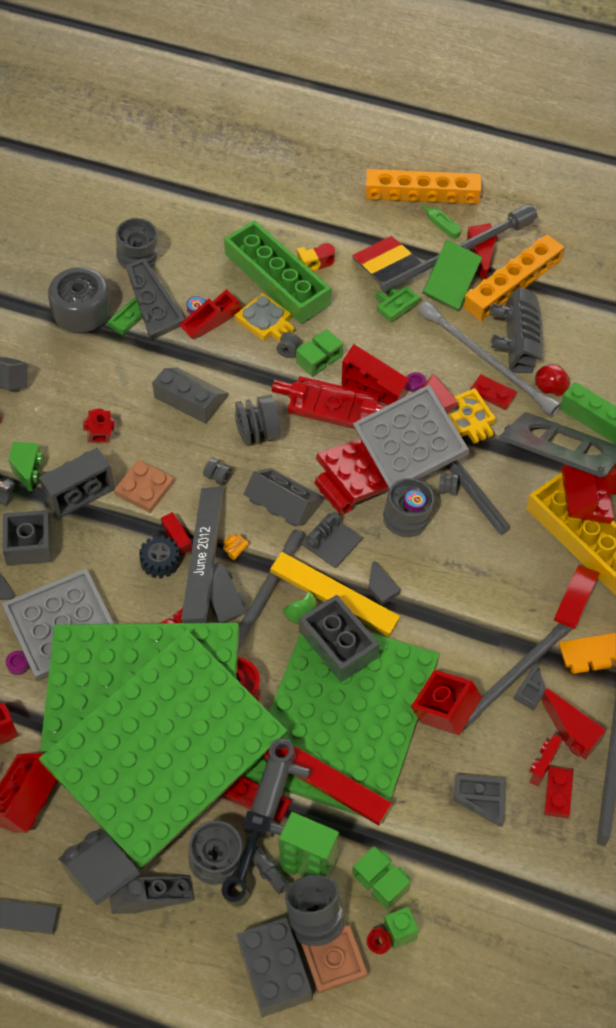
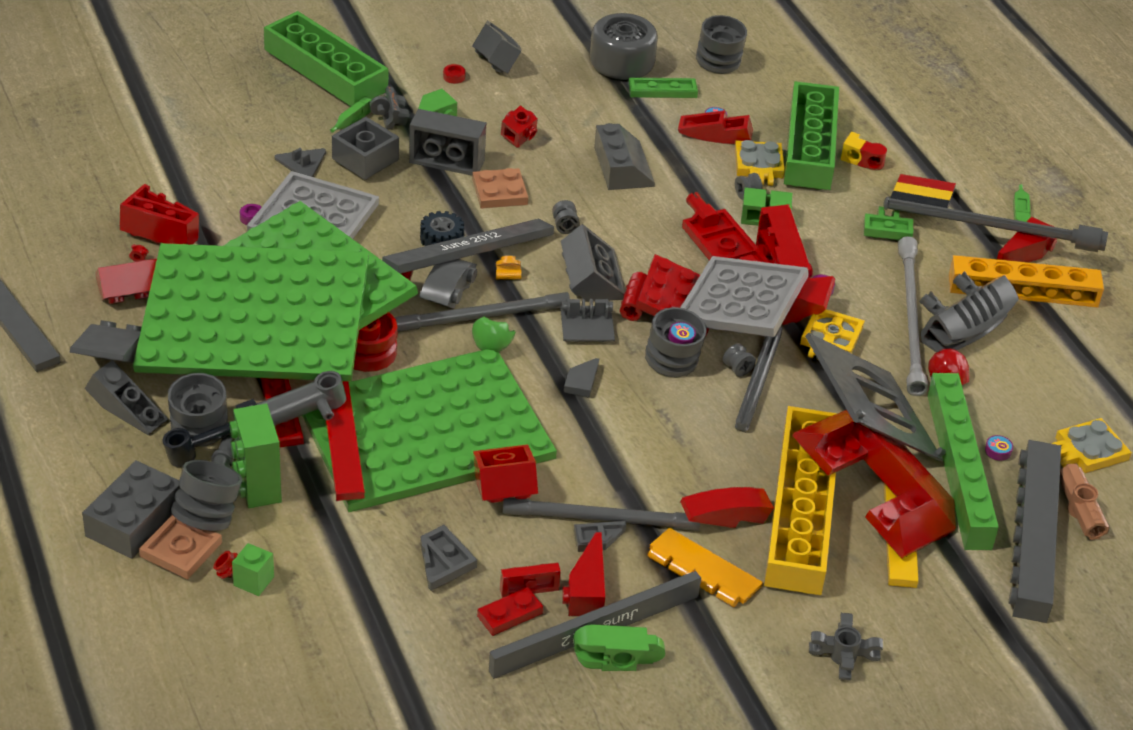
camera: 45 degrees right, 15 degrees down
(154, 302) = (681, 85): dark grey wing -> none
(176, 532) = (480, 223): red piece -> none
(259, 419) = (642, 204): dark grey wheel -> none
(325, 588) = (534, 352): yellow tile -> none
(338, 638) = (483, 365): dark grey brick -> none
(377, 873) = (289, 532): bright green piece -> none
(423, 186) = (1038, 172): light orange brick -> none
(452, 275) = (962, 234): bright green tile -> none
(494, 392) = (882, 340): red plate -> none

